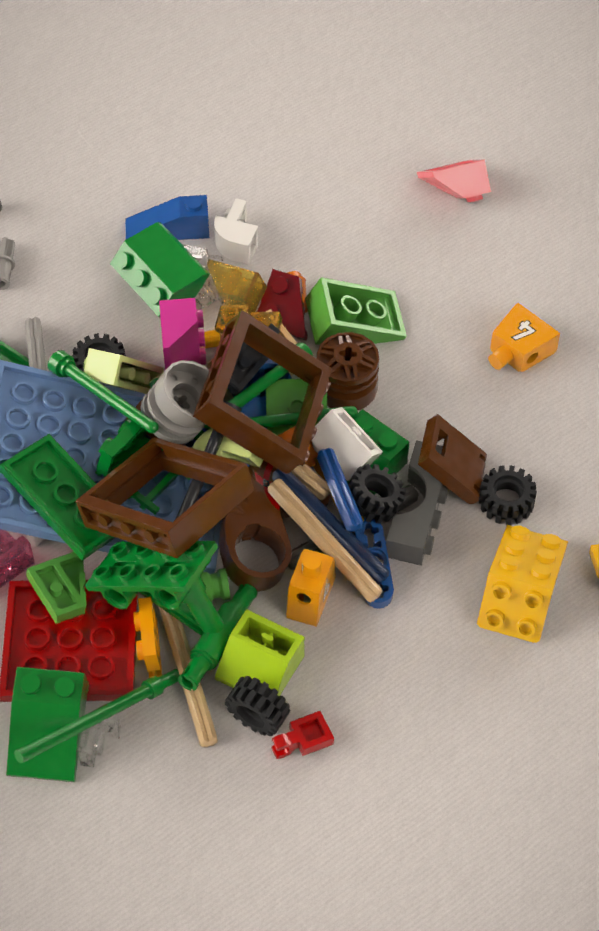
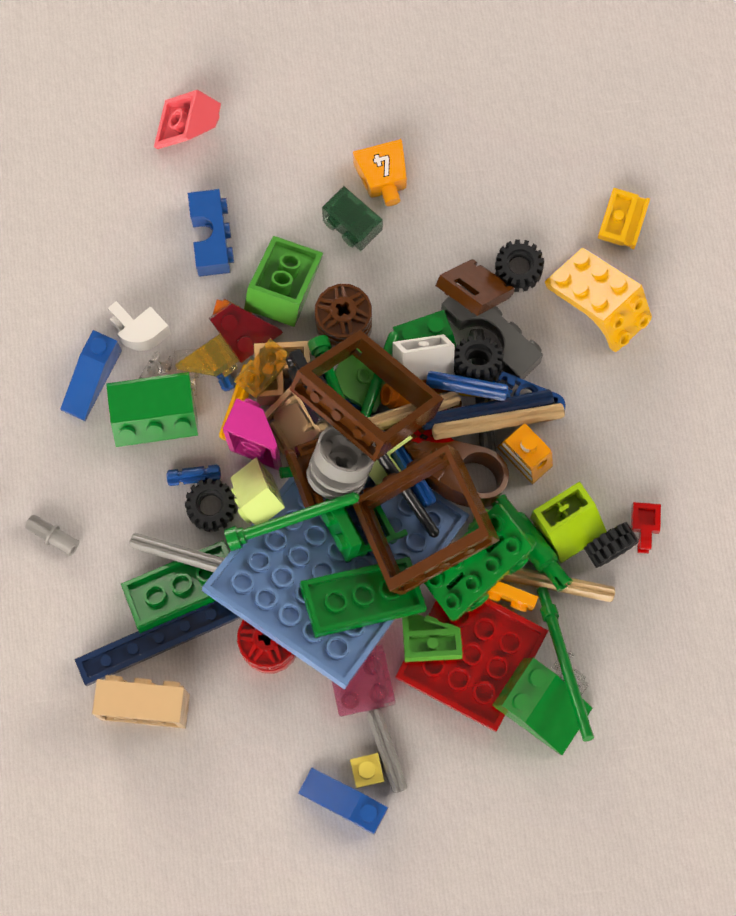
camera: 60 degrees left, 20 degrees up
(114, 328) = (193, 475): none -> blue axle
(346, 254) = (208, 211): none -> blue arch
(453, 338) = (351, 219): none -> clear green brick

